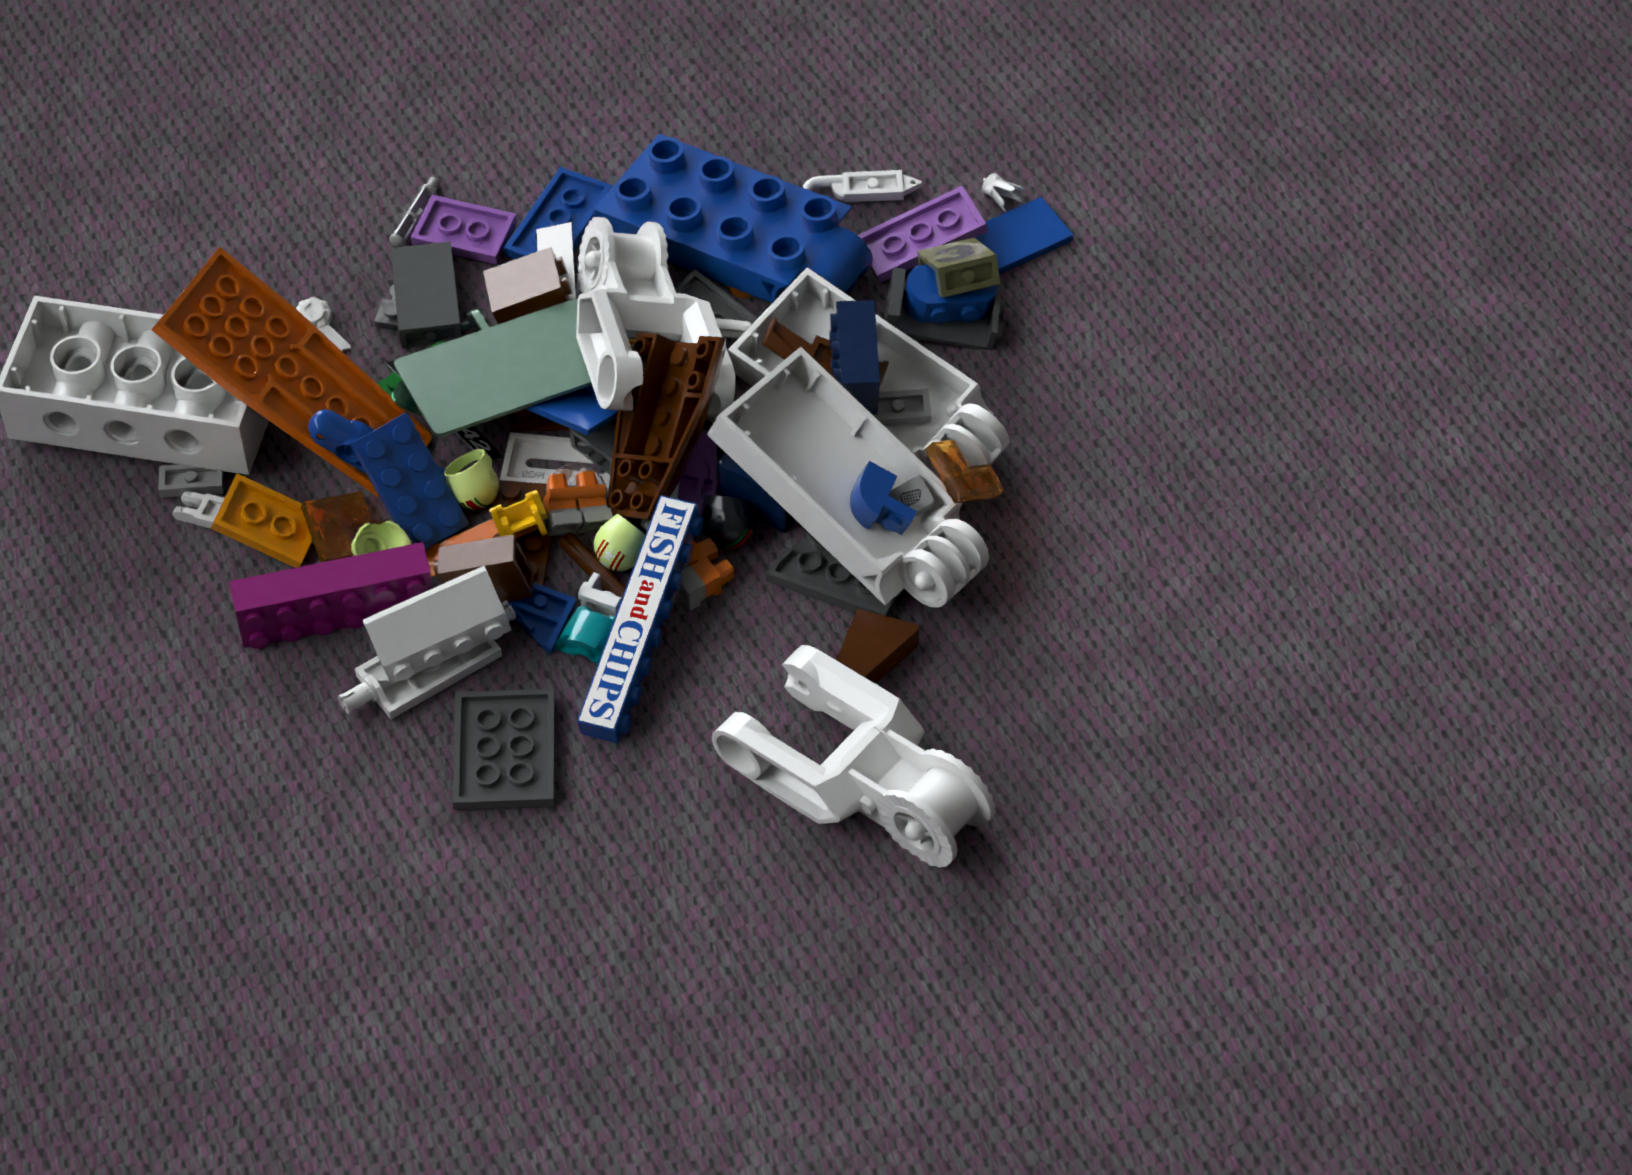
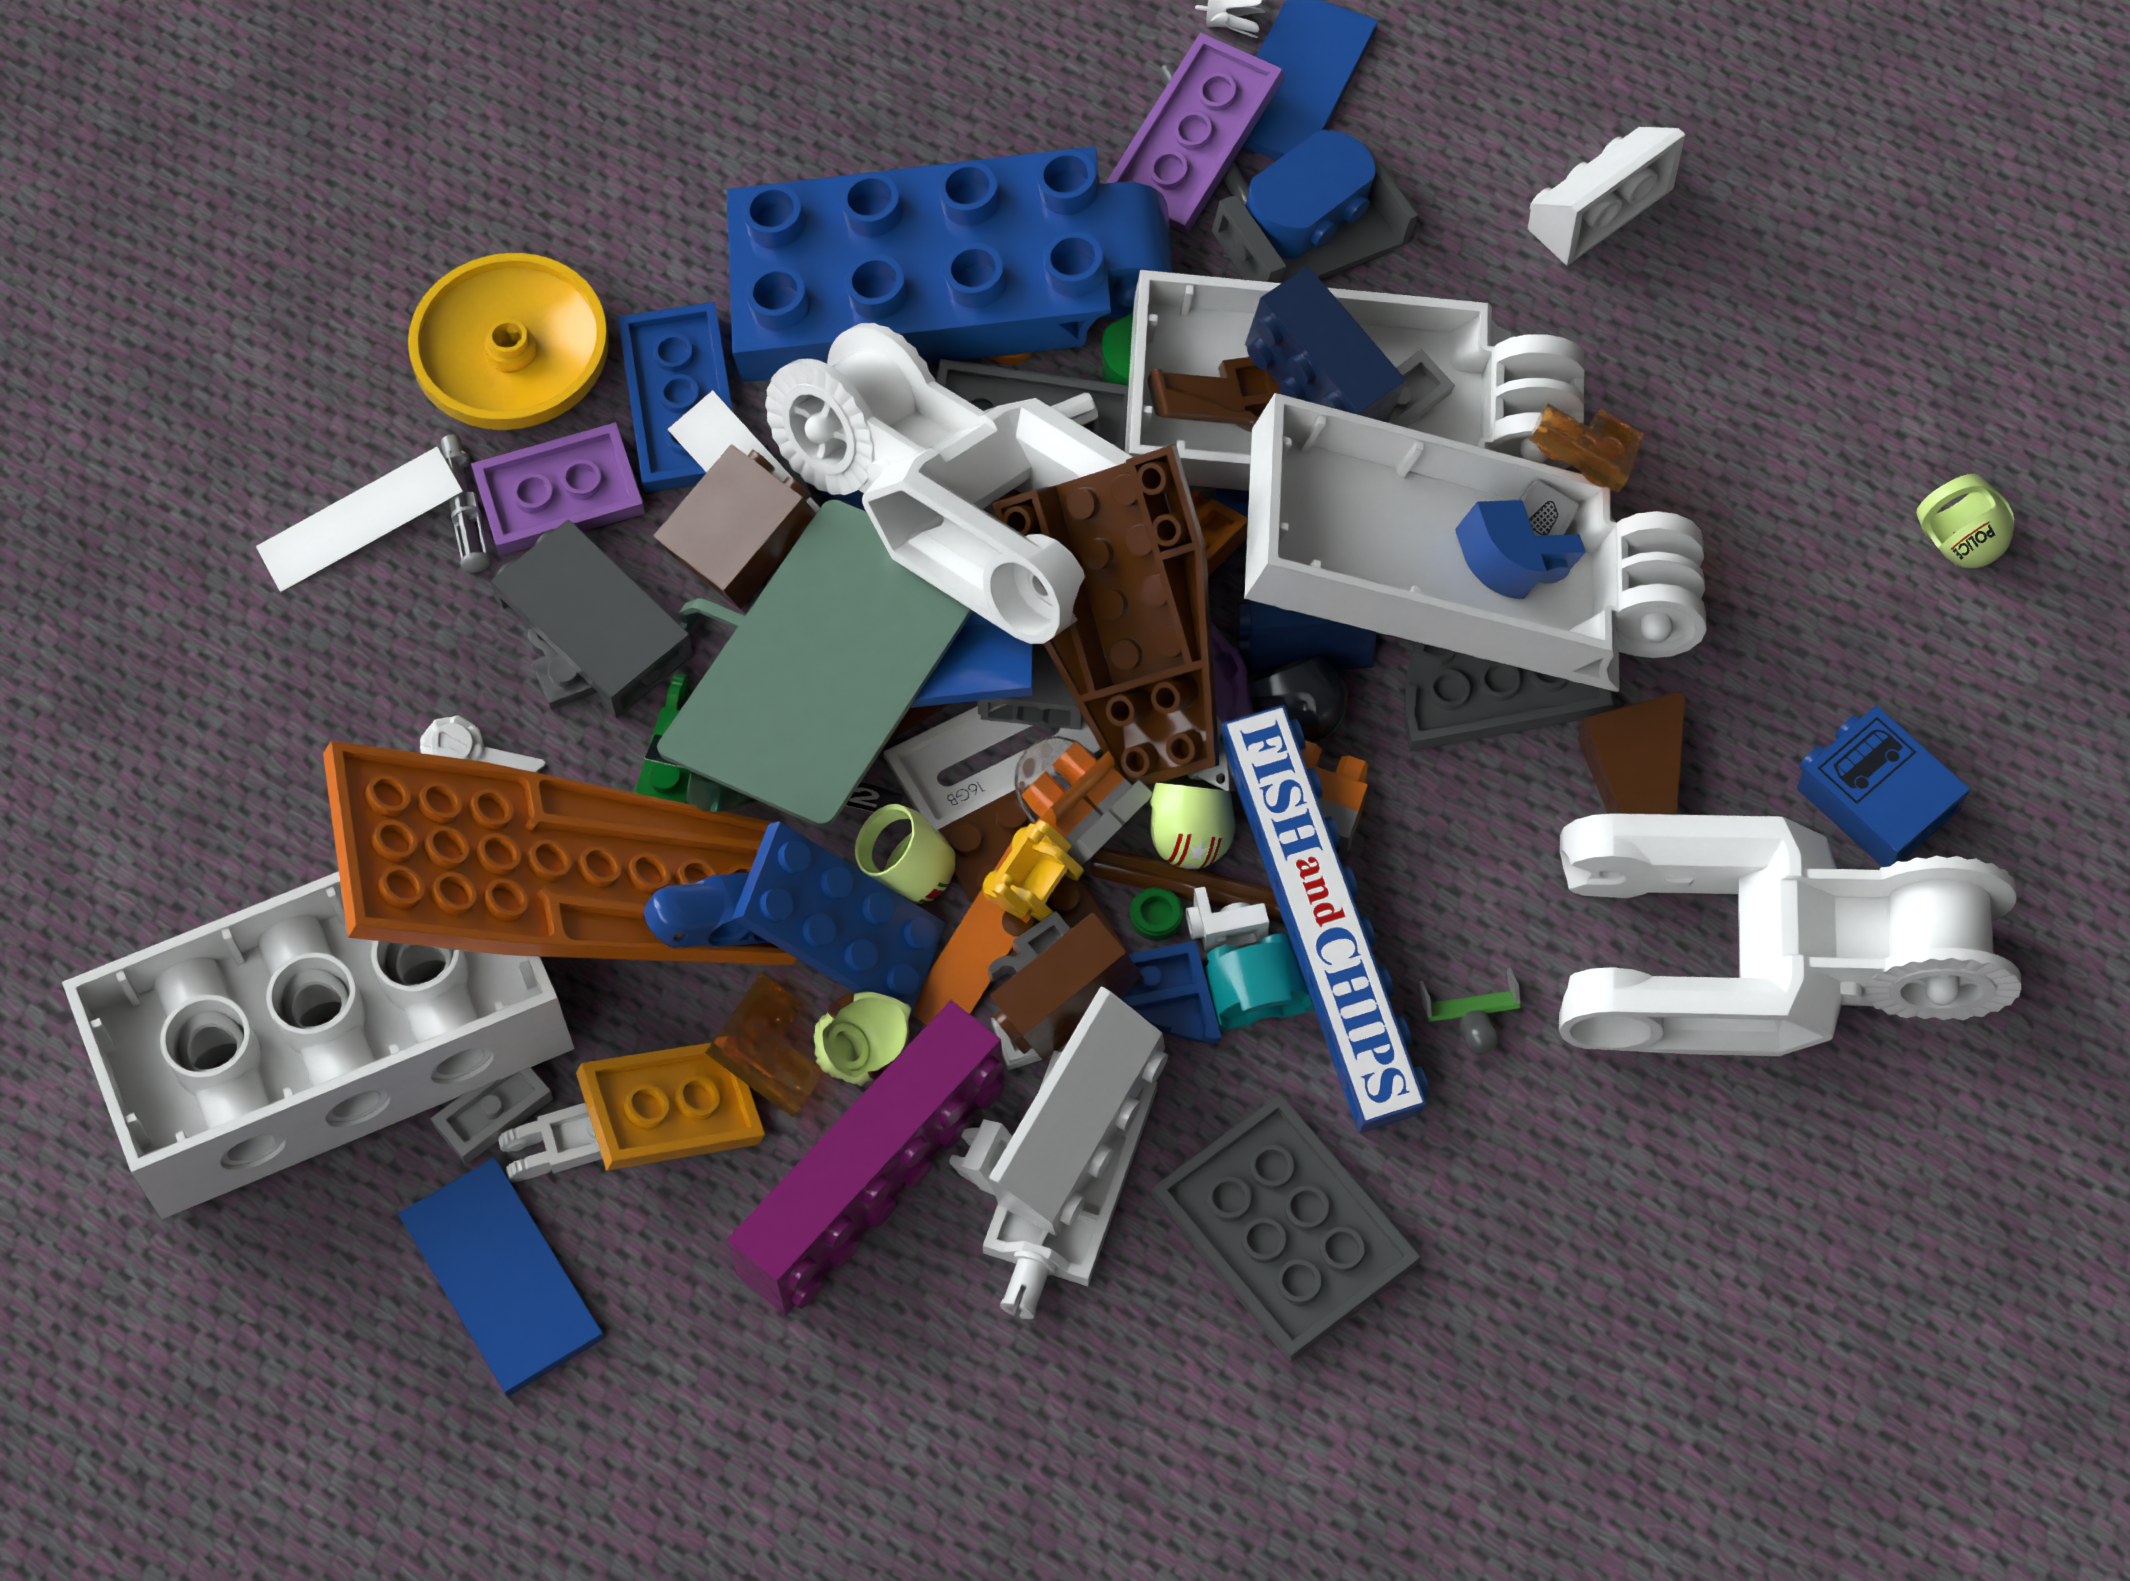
camera: 35 degrees left, 10 degrees up
(133, 553) = (501, 1276): none -> blue tile
(361, 192) = (359, 519): none -> white sticker
(496, 148) = (508, 341): none -> yellow dish
(571, 578) = (1156, 914): none -> green tile
(681, 718) = (1475, 1023): none -> piece
(866, 185) = (1052, 104): white plate -> none
(961, 266) = (1305, 139): olive panel -> none
(987, 732) = (1881, 787): none -> blue brick
(1111, 379) = (1606, 191): none -> white slope
(1148, 646) = (1980, 521): none -> yellowish green helmet

